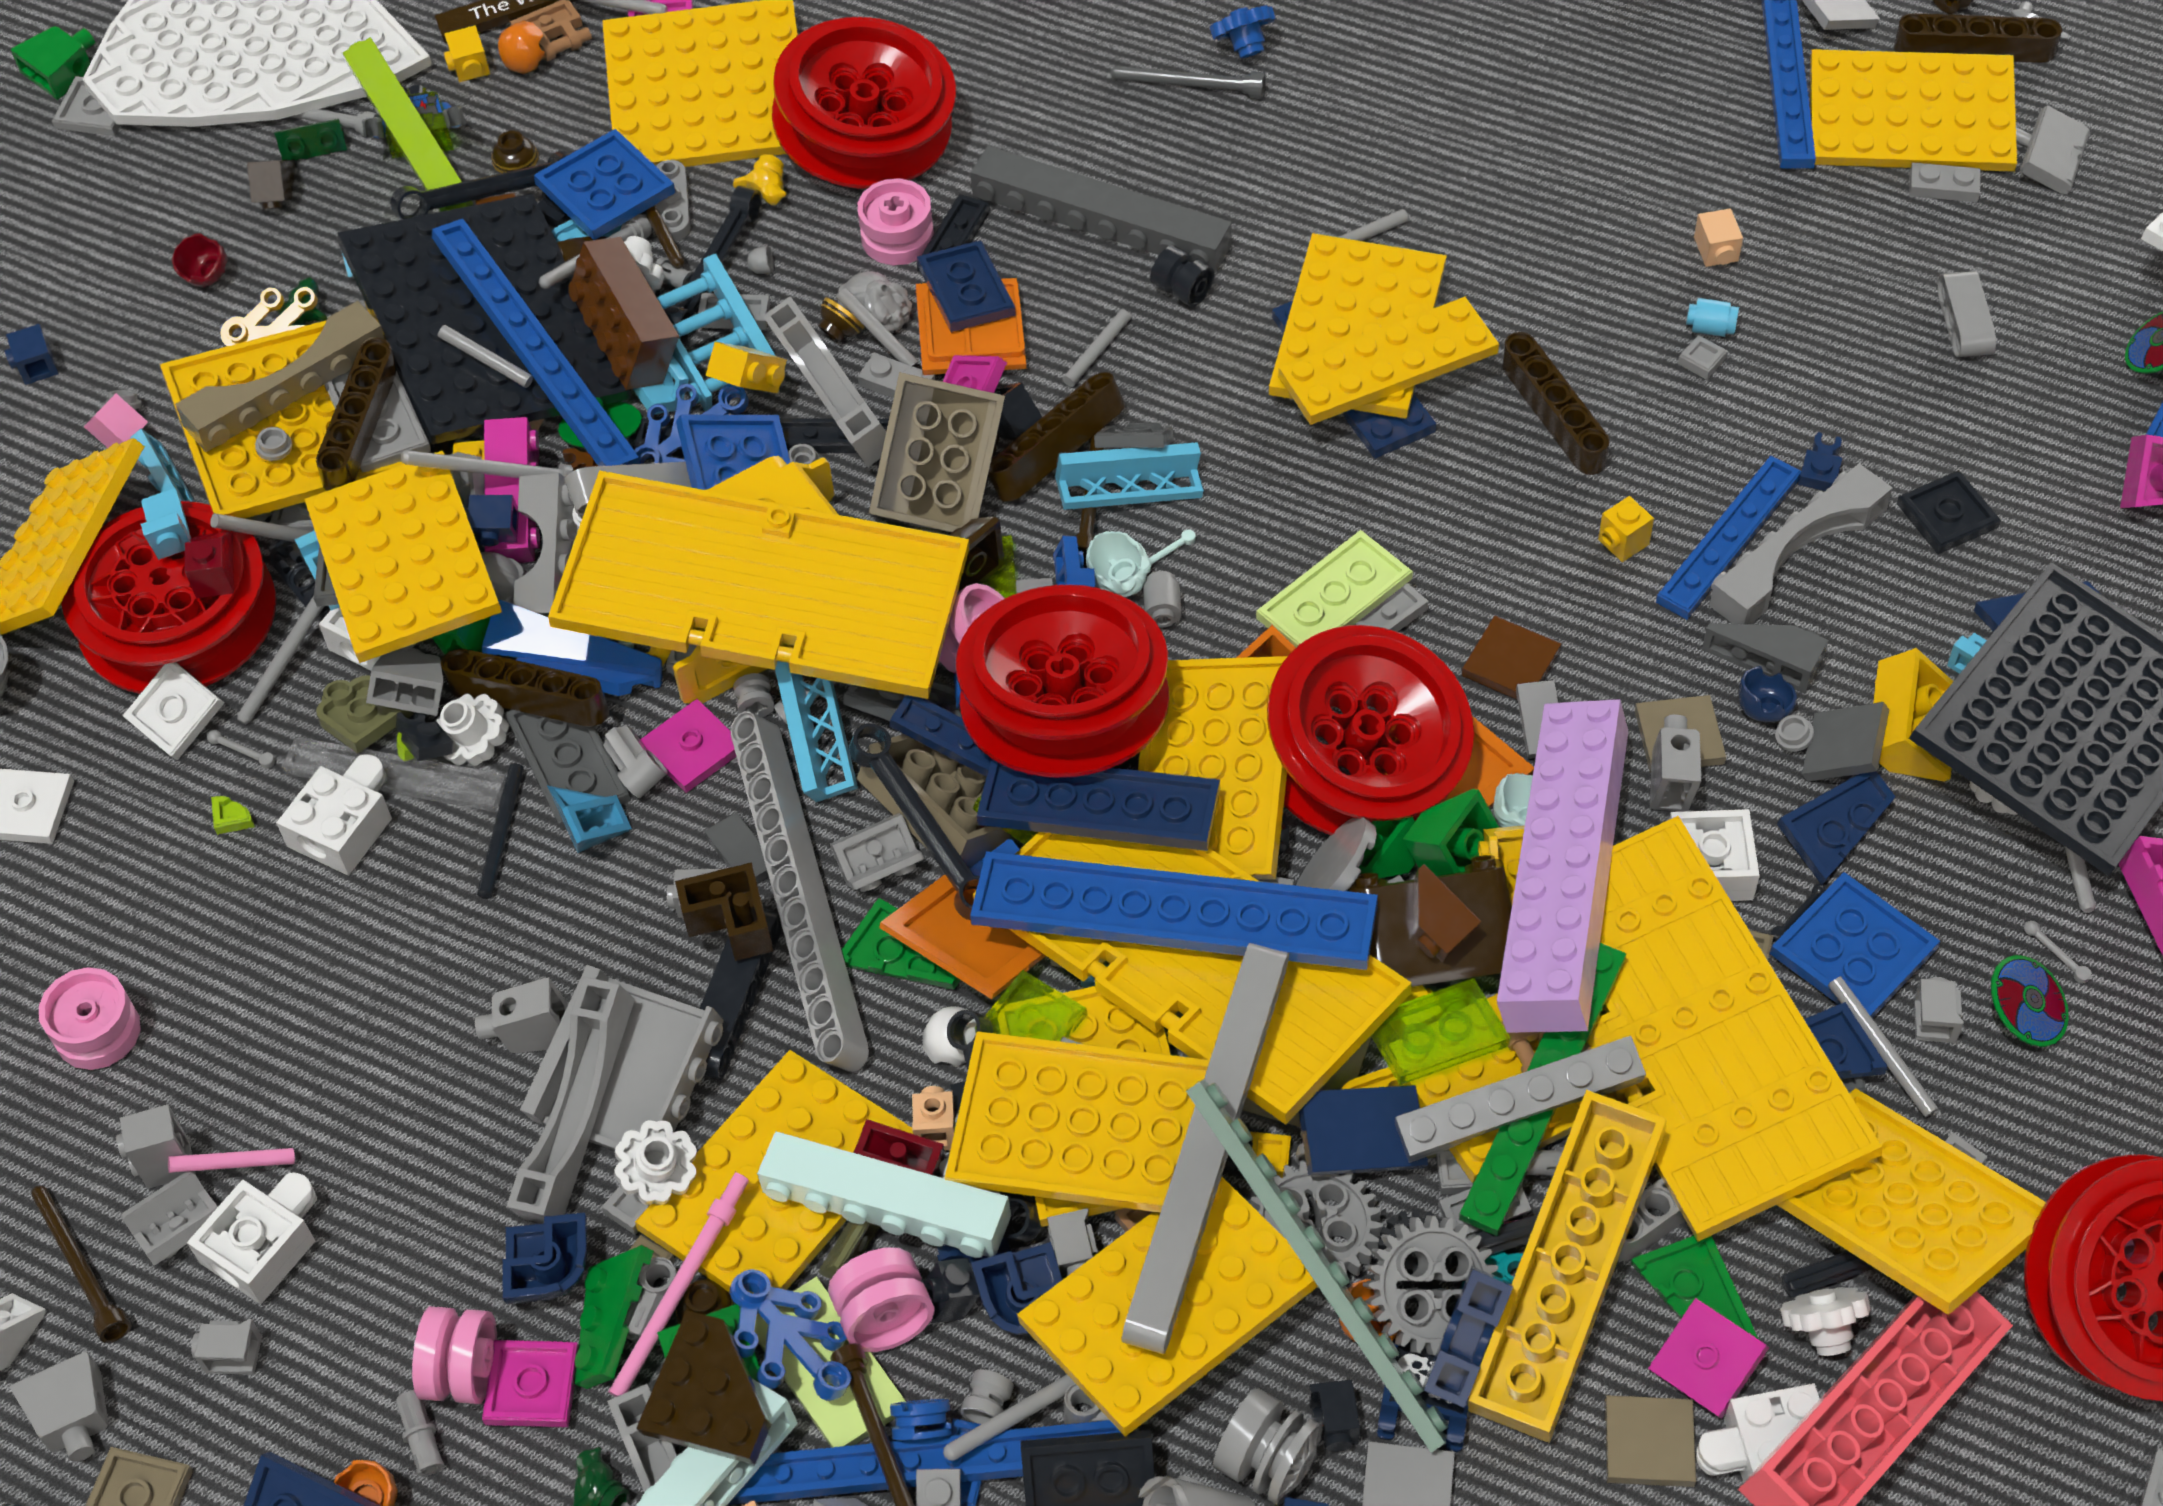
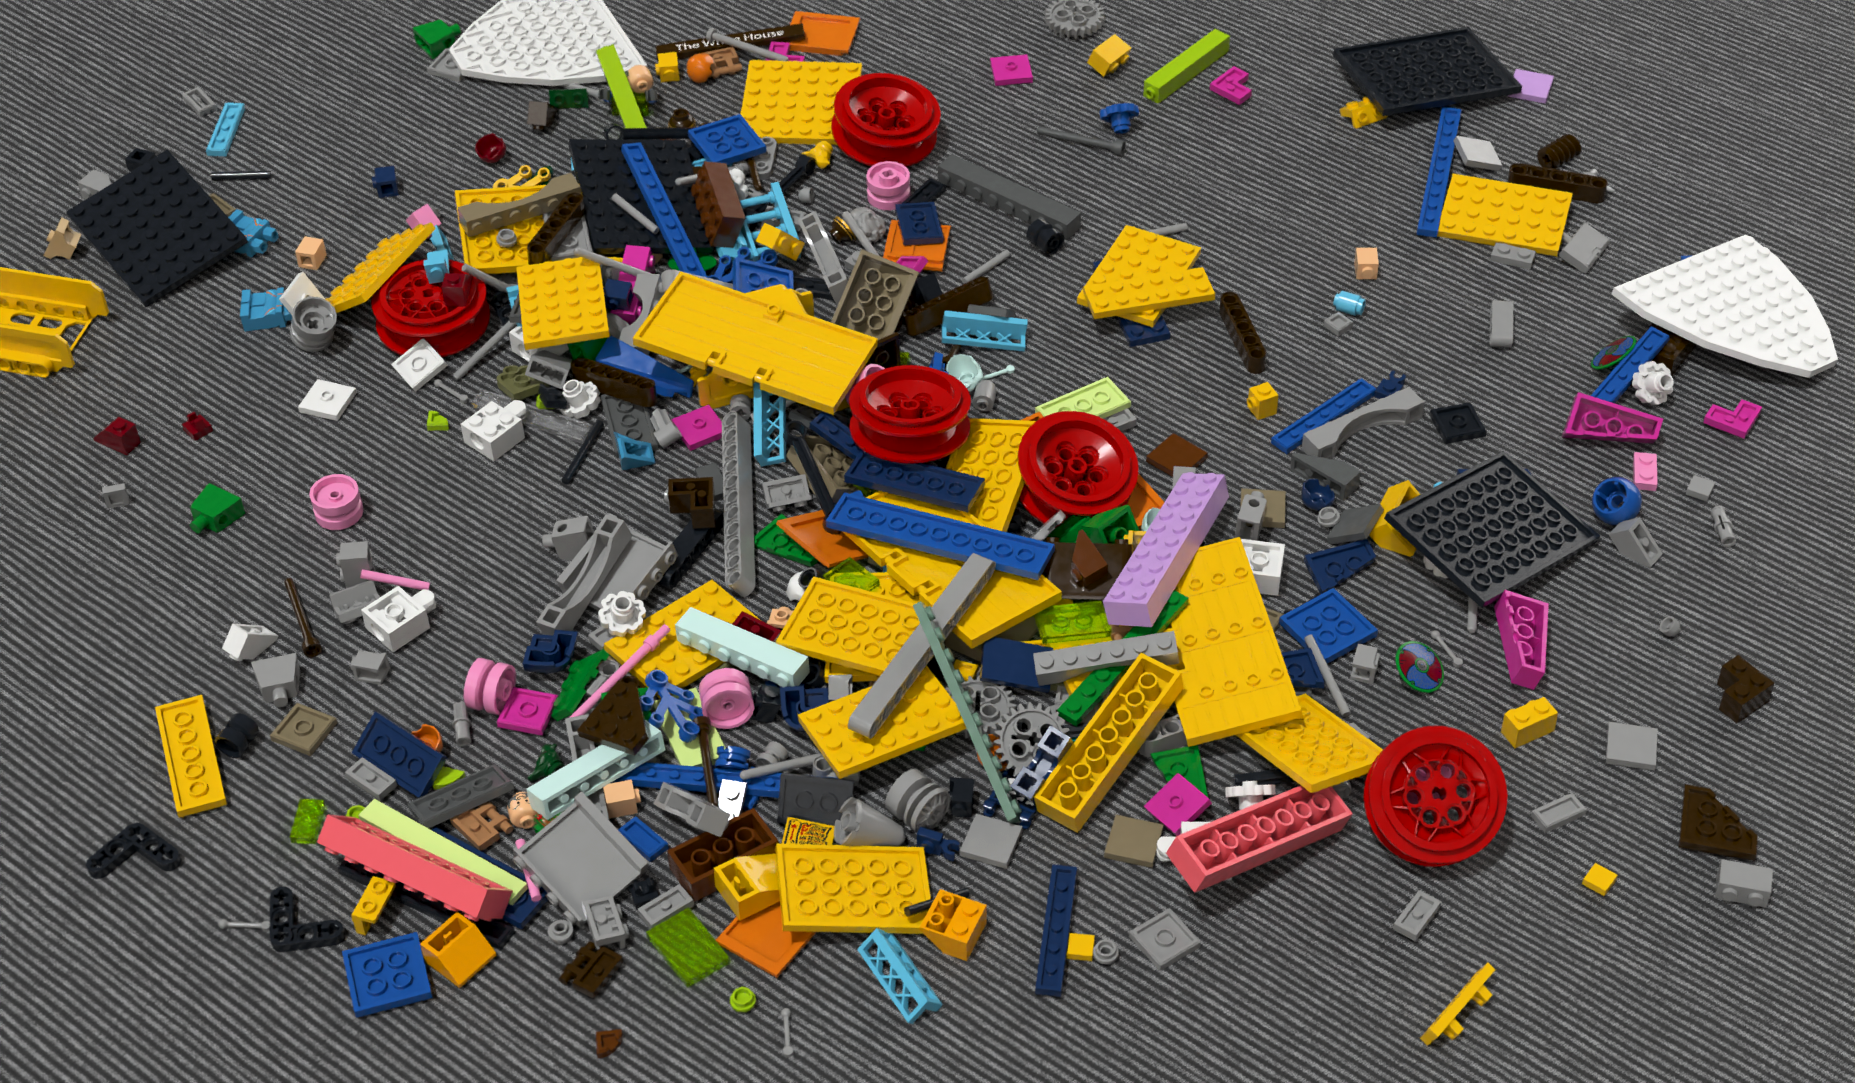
camera: 10 degrees right, 10 degrees down
(428, 90) = (640, 77): none -> light nougat head

